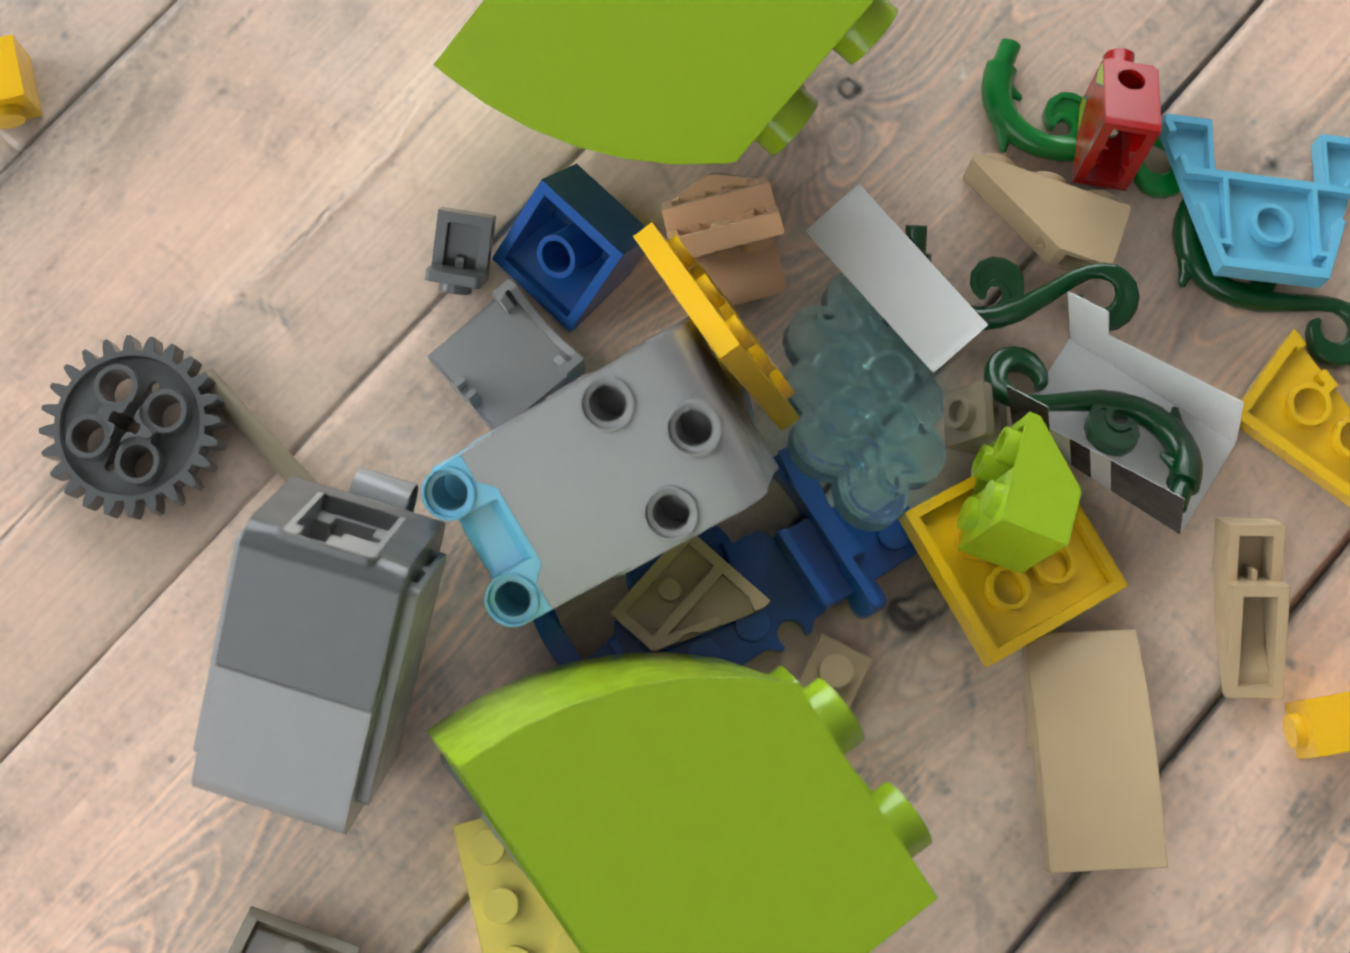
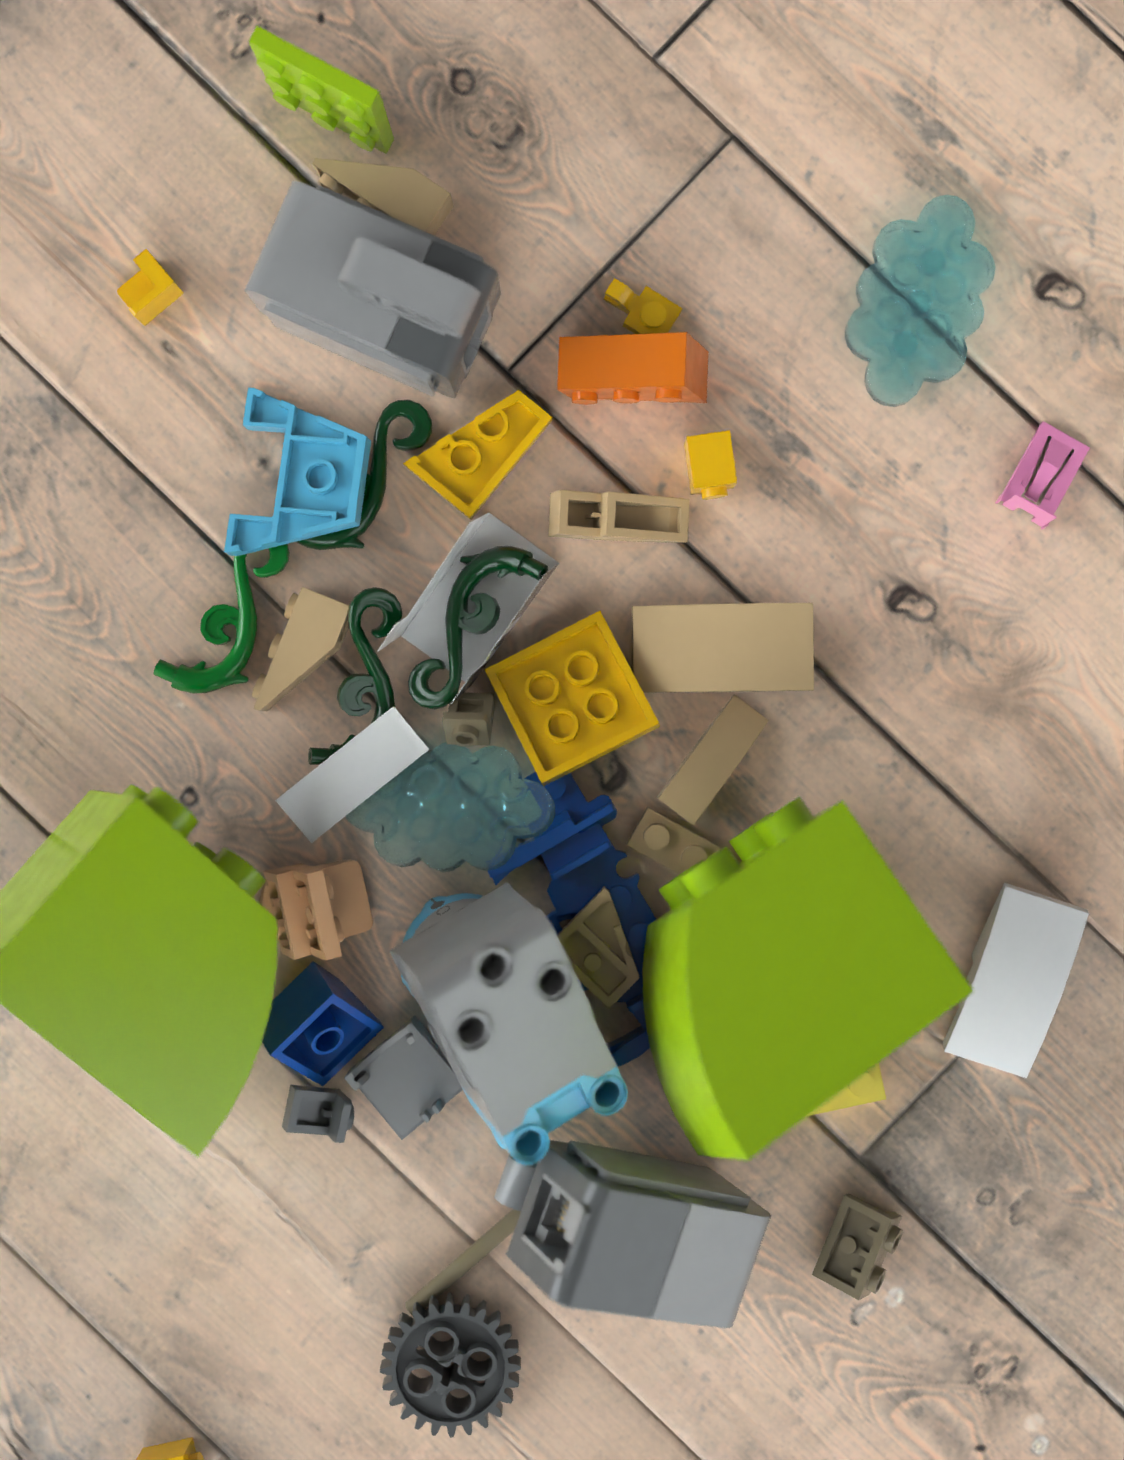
camera: 85 degrees left, 10 degrees up
(720, 324) = (399, 928): yellow plate -> none
(942, 741) = (713, 759): none -> tan slope
(1020, 499) = (538, 699): lime slope -> none
(1122, 99) = (230, 594): red torso -> none

